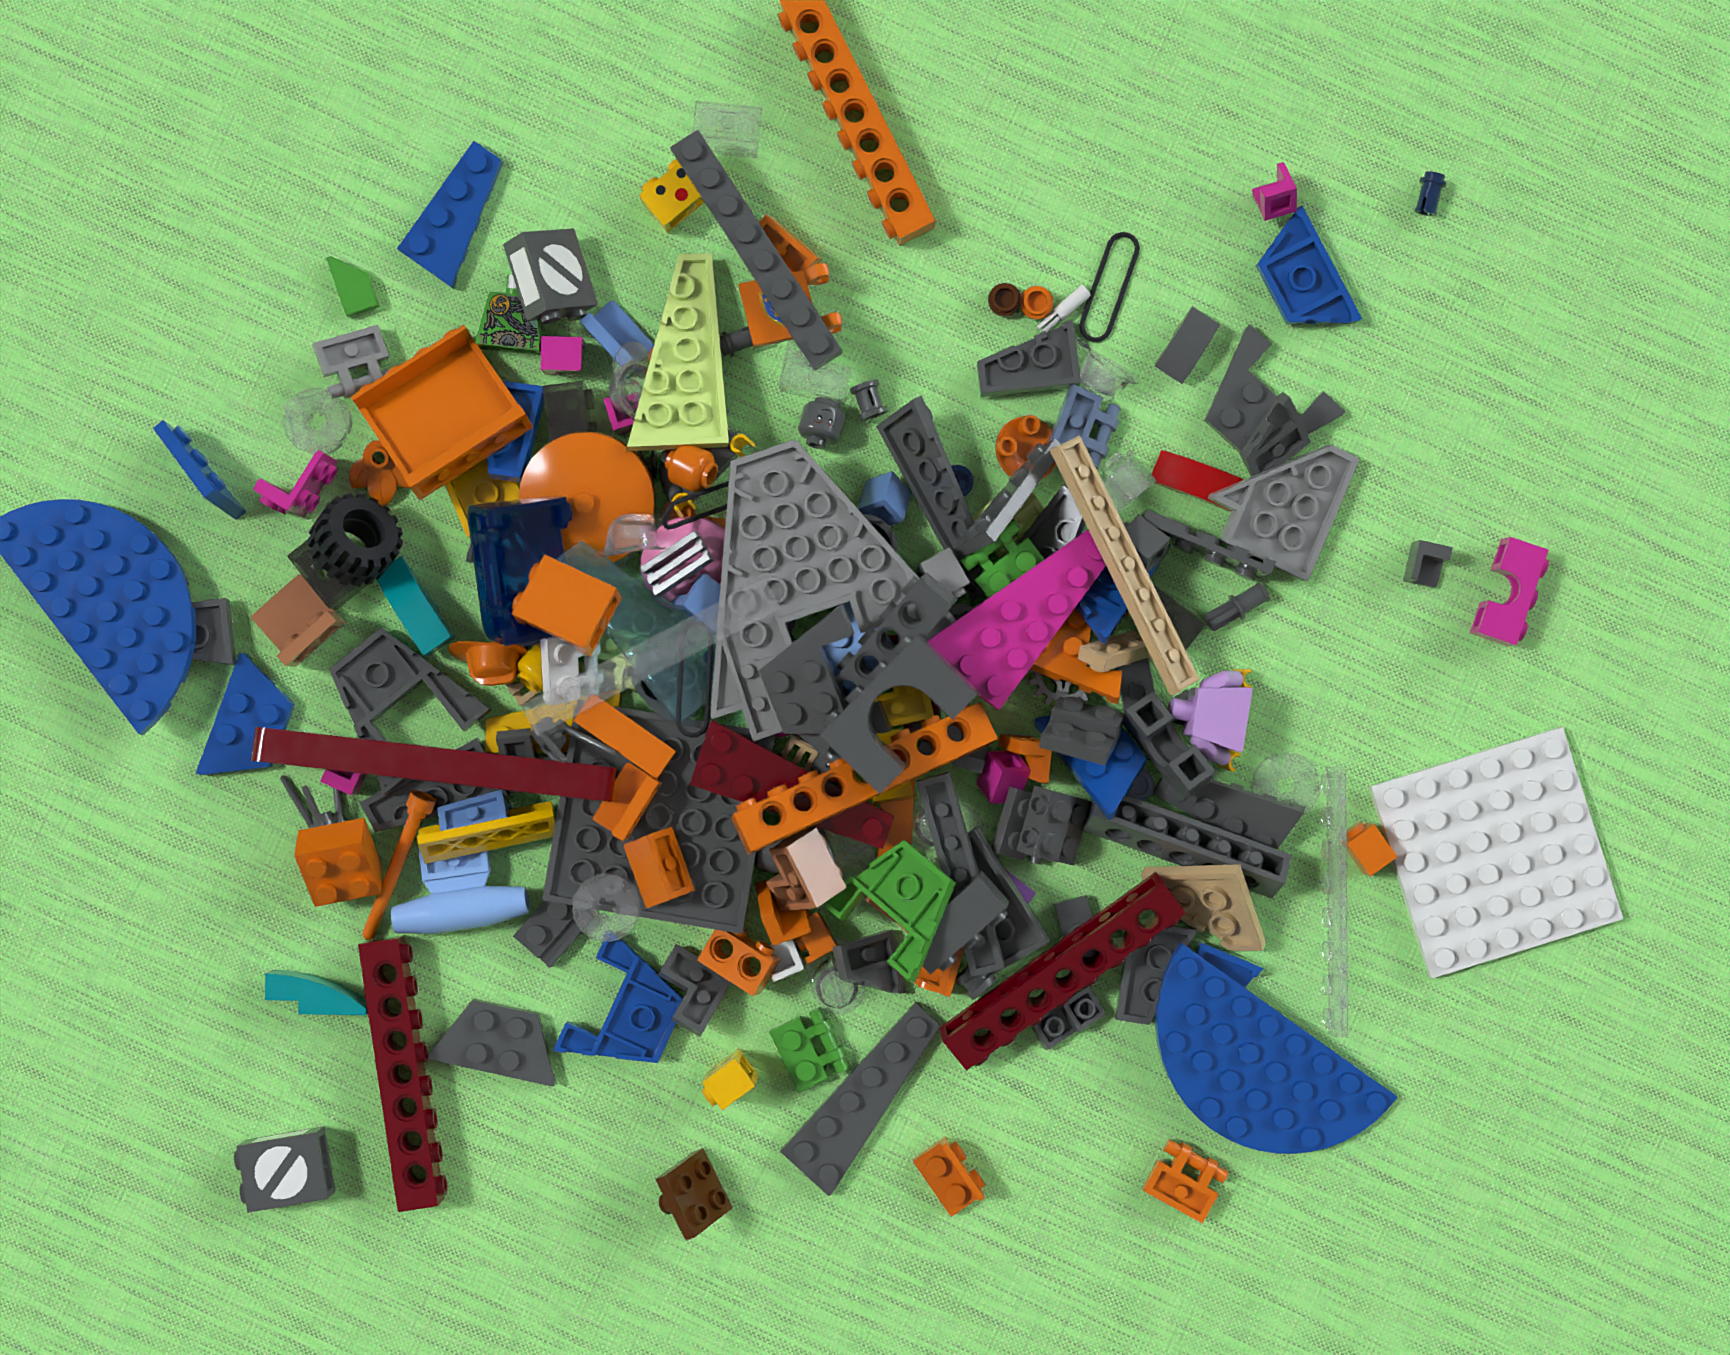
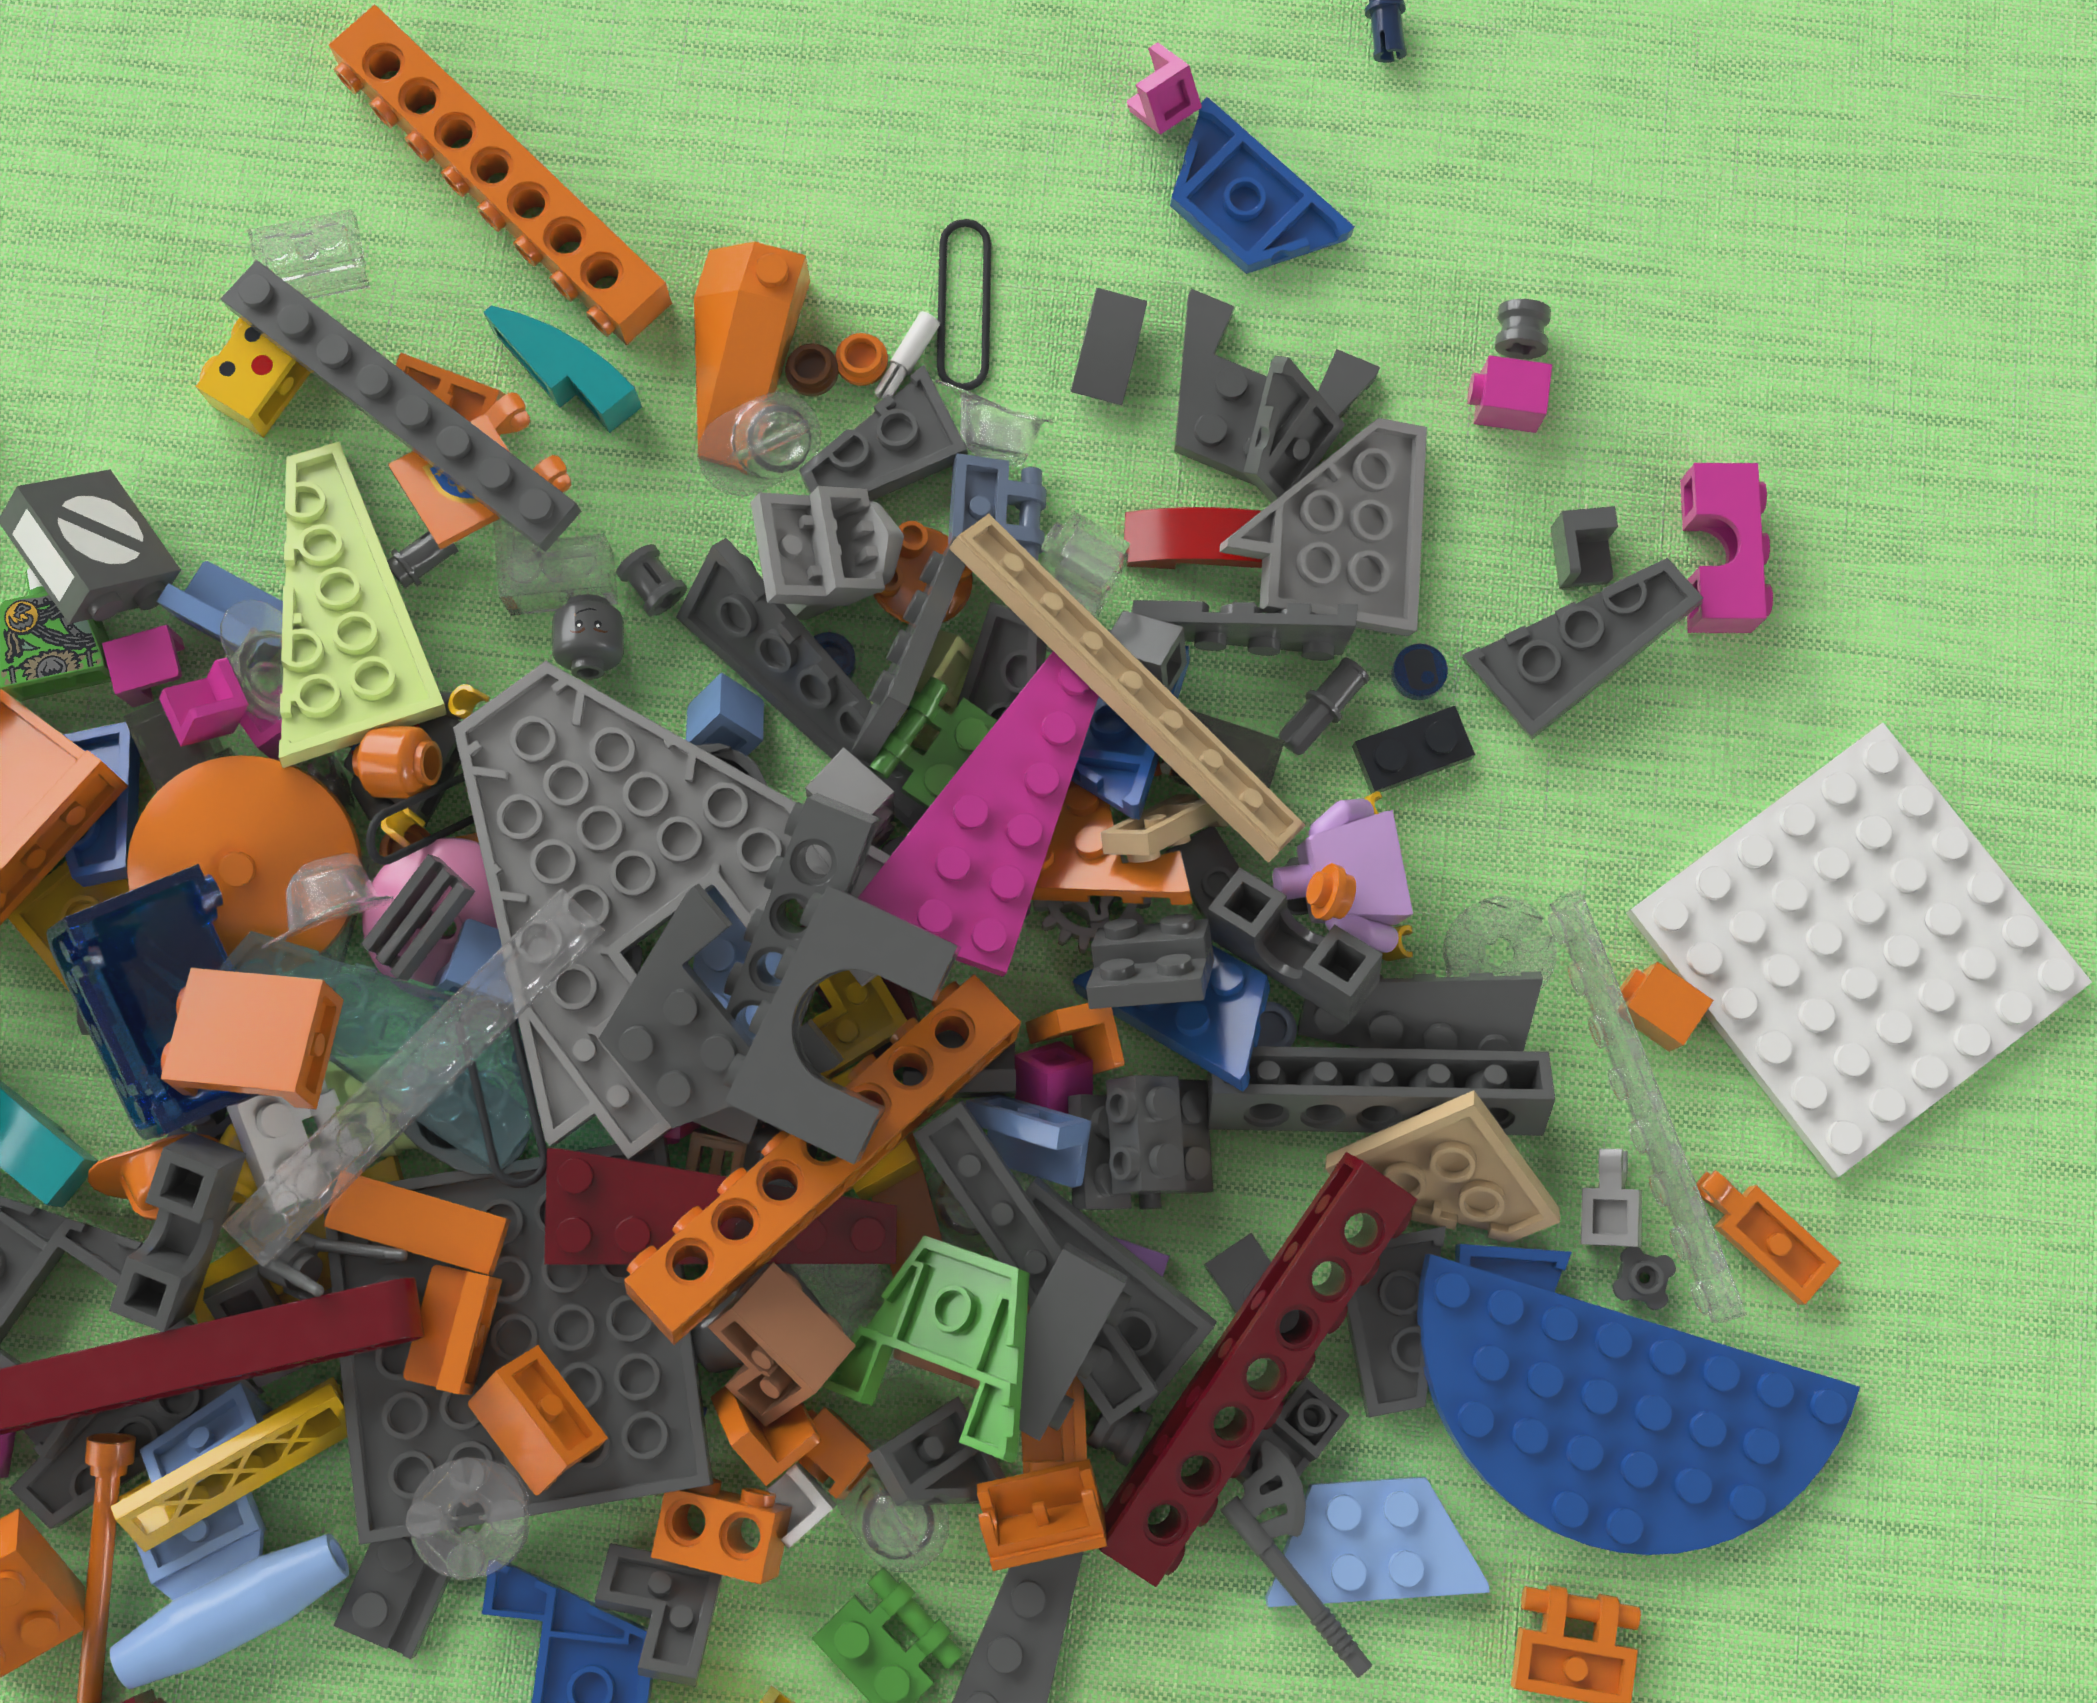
camera: 30 degrees left, 10 degrees down
(493, 703) = (192, 1196): none -> dark grey arch
(592, 396) = (205, 706): none -> dark pink panel
(859, 251) = (565, 367): none -> teal slope
(917, 1011) = (1041, 1515): none -> orange hinge
(958, 336) = (759, 444): none -> clear piece
(970, 263) = (744, 324): none -> orange wedge
(977, 419) = (824, 548): none -> light grey piece
(983, 803) = (1035, 1138): none -> medium blue panel
(1034, 1062) = (1259, 1537): none -> dark grey piece
(1093, 1088) = (1378, 1545): none -> light blue wing
(1199, 726) = (1331, 892): none -> orange plate
(1280, 650) = (1413, 750): none -> black plate
(1294, 953) = (1611, 1212): none -> light grey plate
(1297, 986) = (1629, 1285): none -> dark grey plate
(1300, 604) = (1419, 671): none -> clear blue tile
(1378, 998) = (1769, 1237): none -> orange plate
(1392, 625) = (1565, 657): none -> dark grey wing
(1417, 454) = (1510, 393): none -> dark pink brick
(1440, 416) = (1522, 328): none -> dark grey wheel

